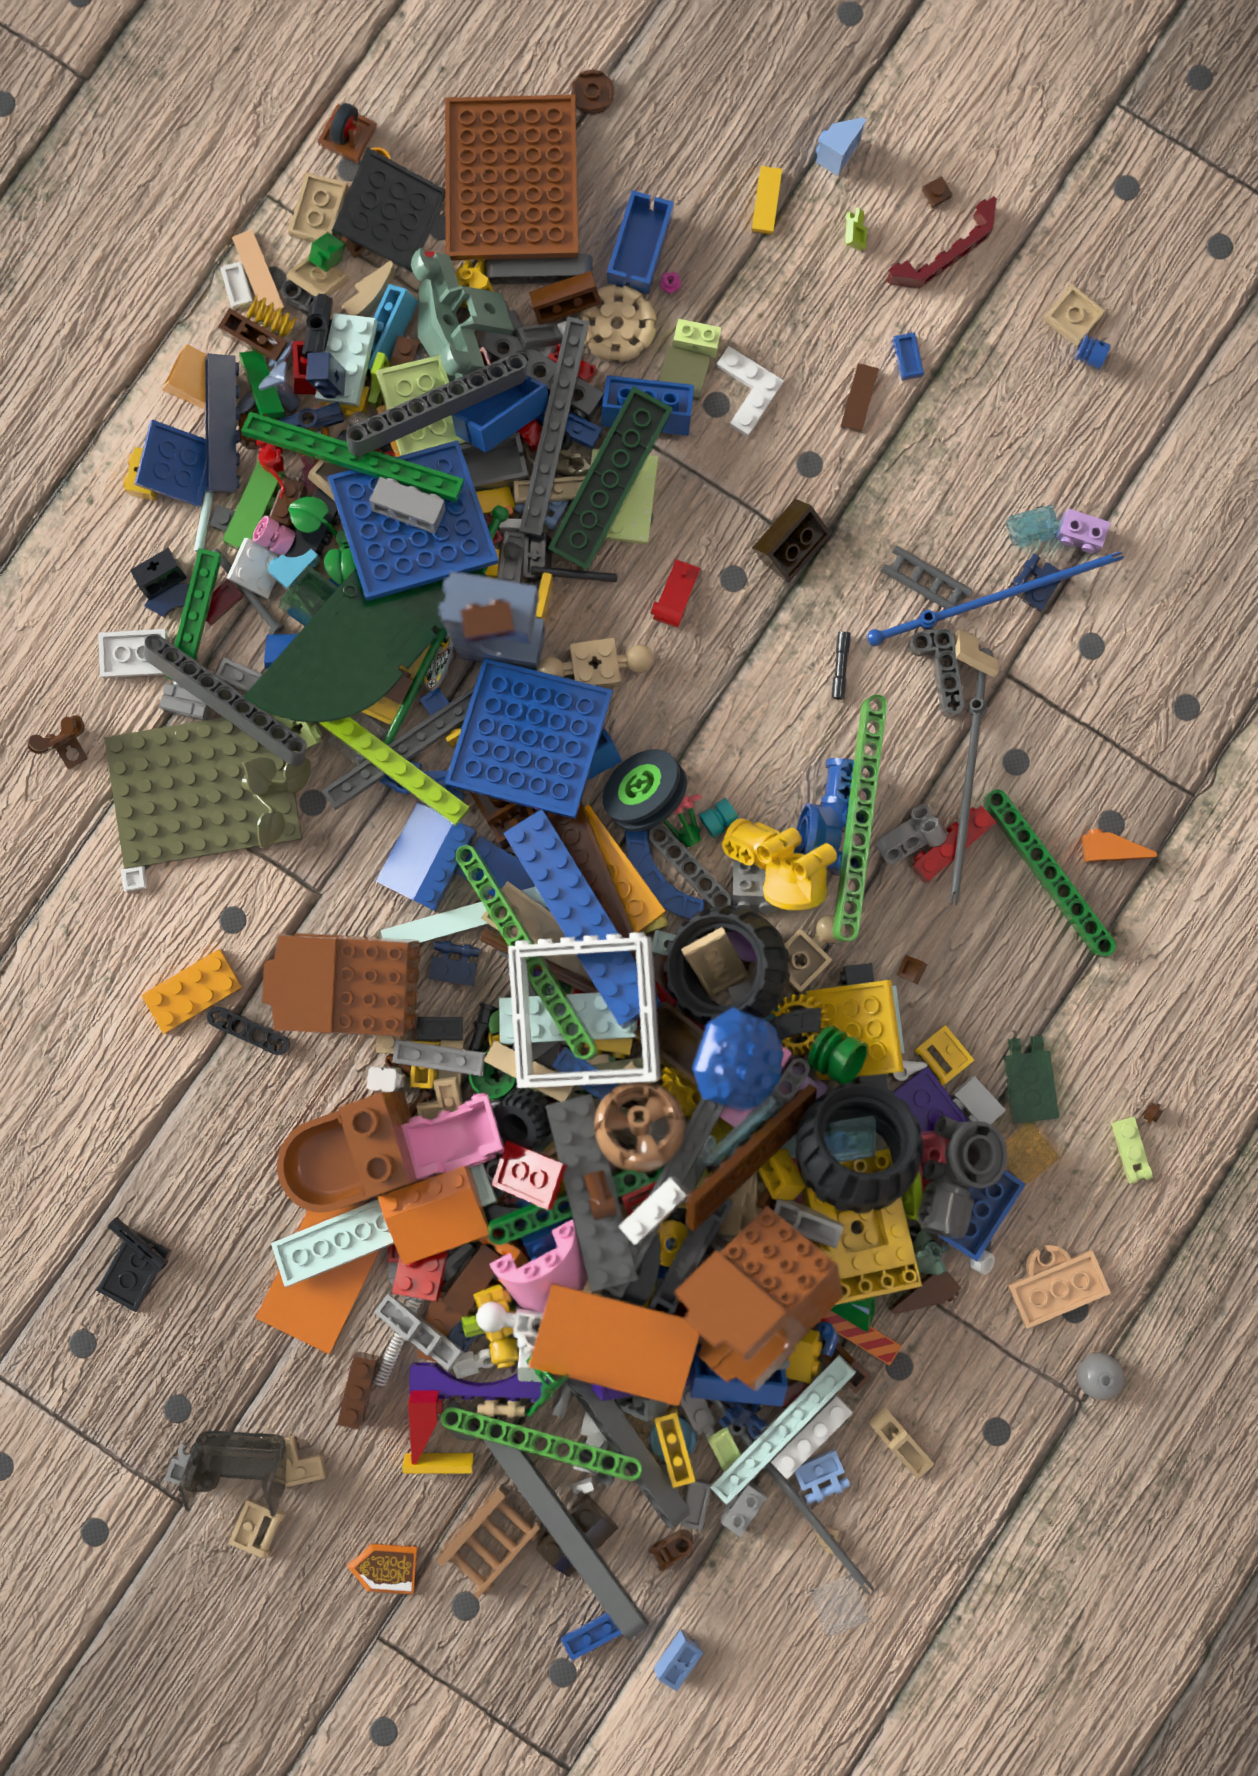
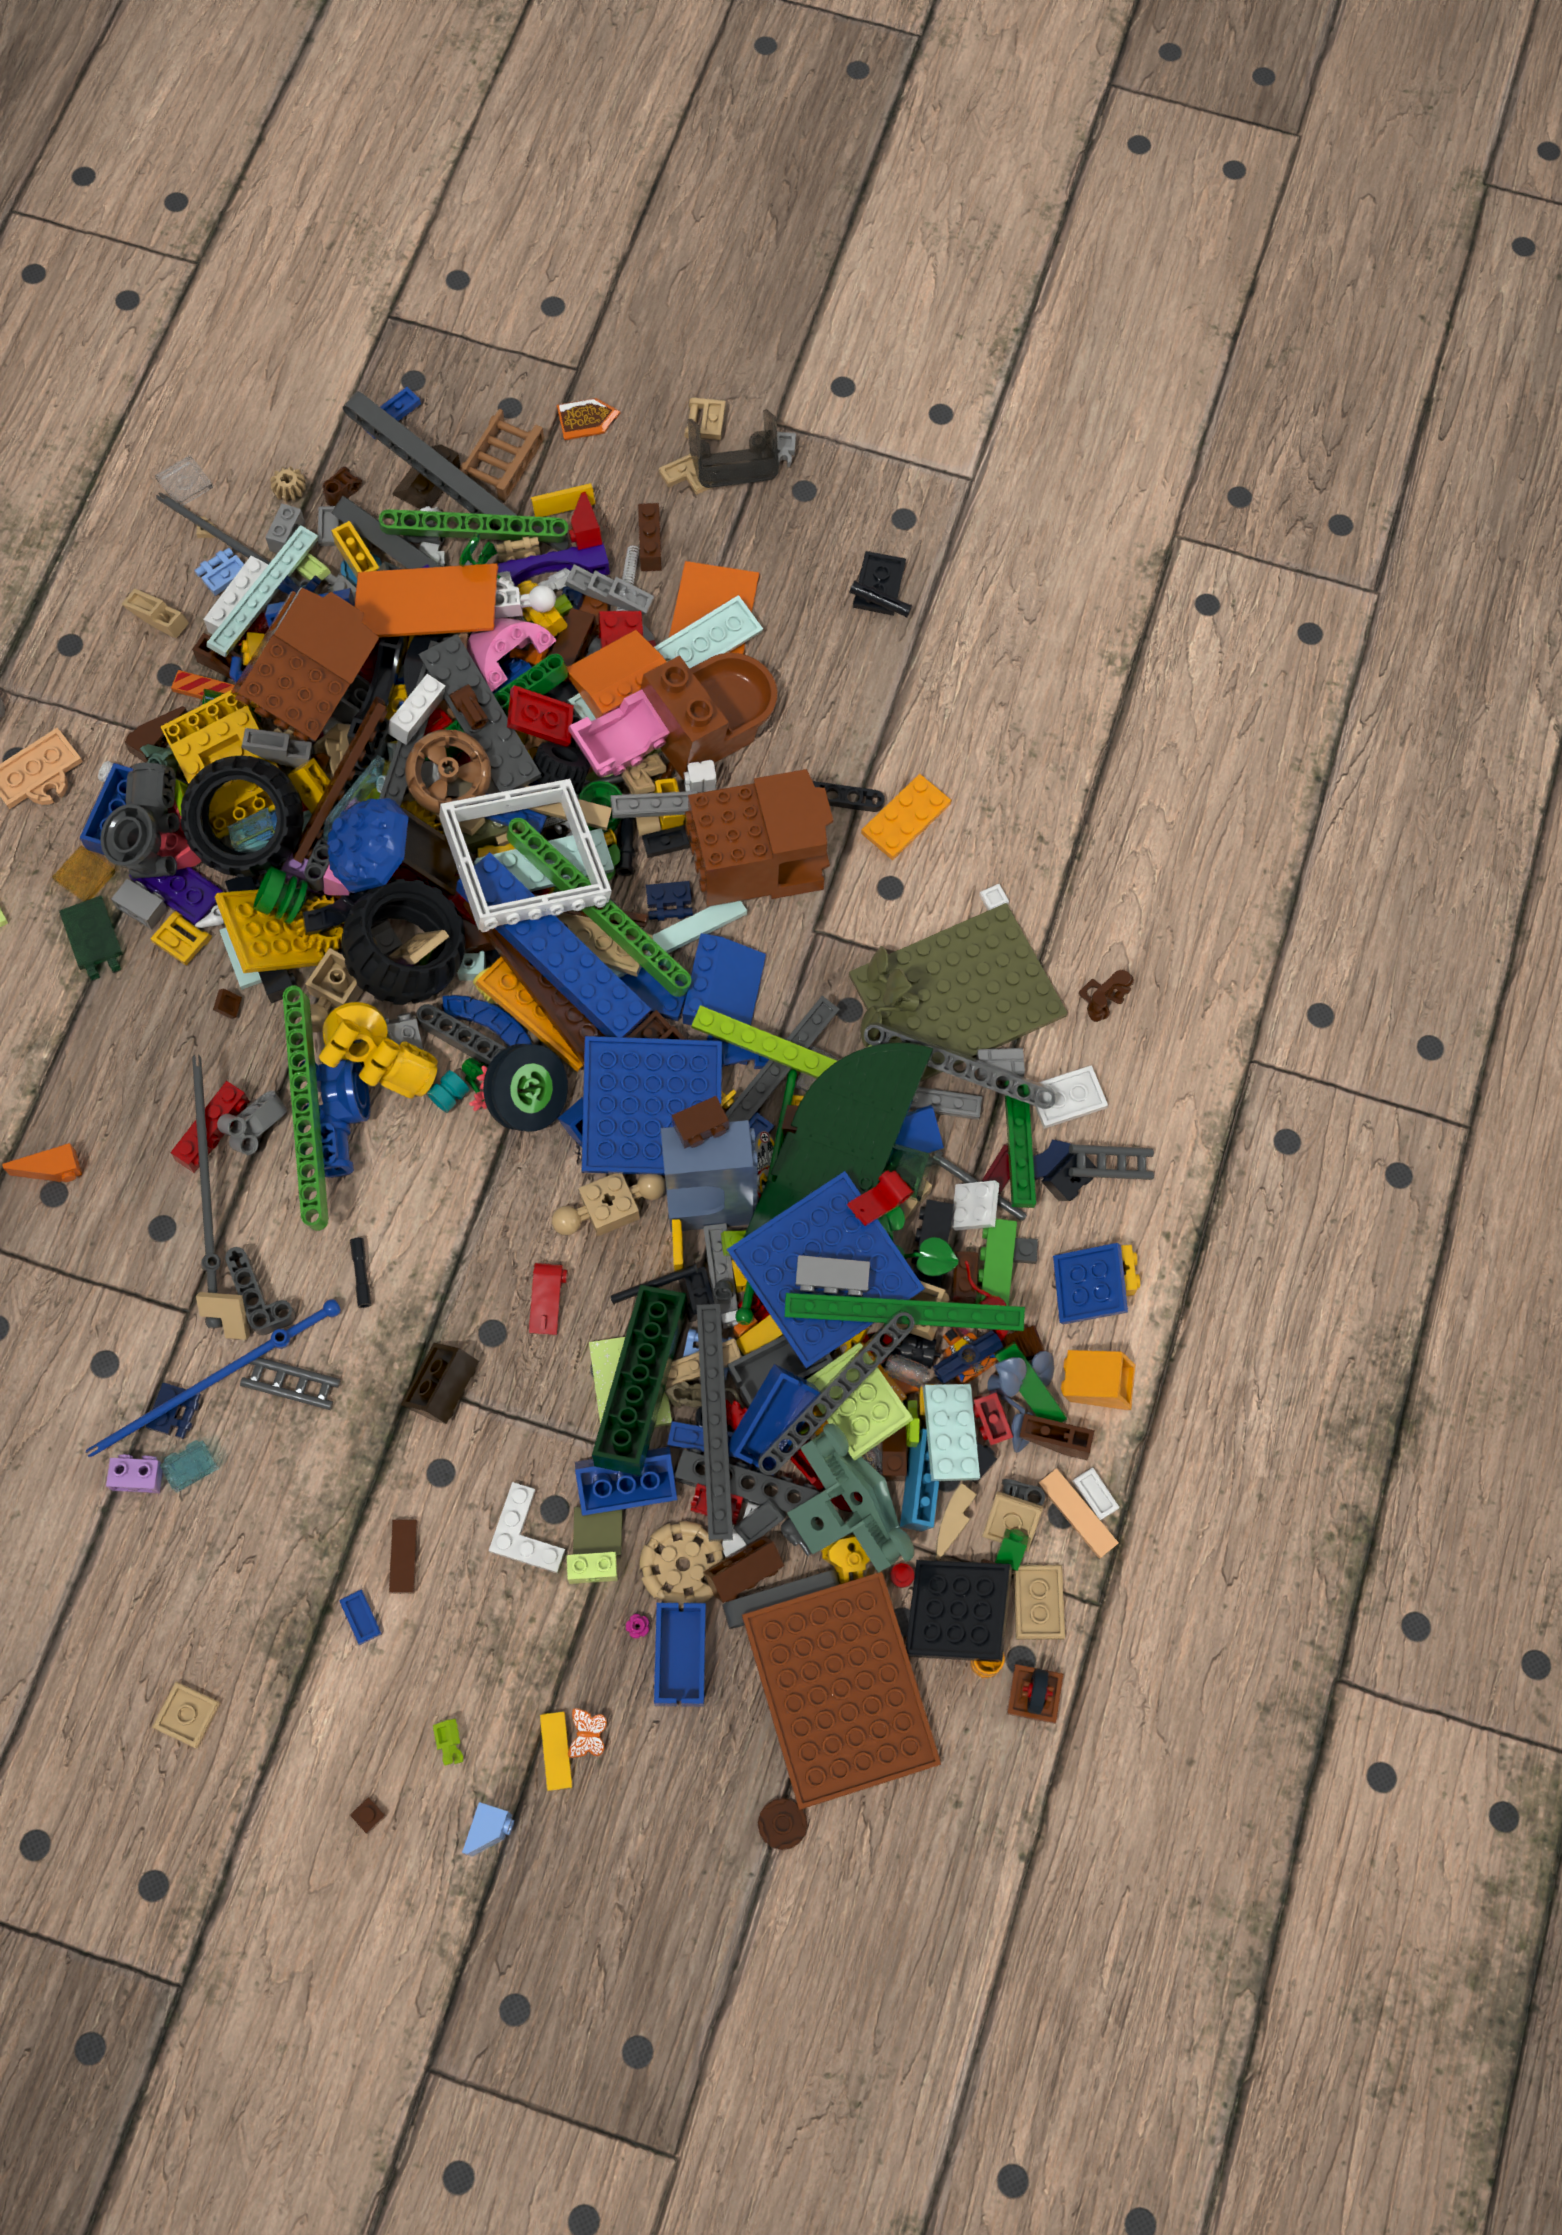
camera: 160 degrees right, 15 degrees down
(121, 581) = (1120, 1152): none -> dark grey bar
(204, 520) = (1045, 1245): light aqua bar -> none
(221, 423) = (1057, 1333): dark blue brick -> none
(270, 317) = (1045, 1462): yellow piece -> none
(270, 534) = (967, 1236): bright pink wheel -> none
(288, 569) = (937, 1204): medium azure arch -> none
(318, 325) = (992, 1471): black piece -> none
(326, 374) = (960, 1393): dark blue brick -> none
(334, 570) = (881, 1199): none -> red door
(678, 1660) = (315, 408): medium blue hinge -> none
(736, 201) = (588, 1734): none -> animal
(737, 1567) = (288, 484): none -> tan gear
(907, 276) = (307, 1800): dark red slope -> none
(1059, 877) = (101, 1119): green beam -> none
(1092, 352) = (158, 1672): blue piece -> none

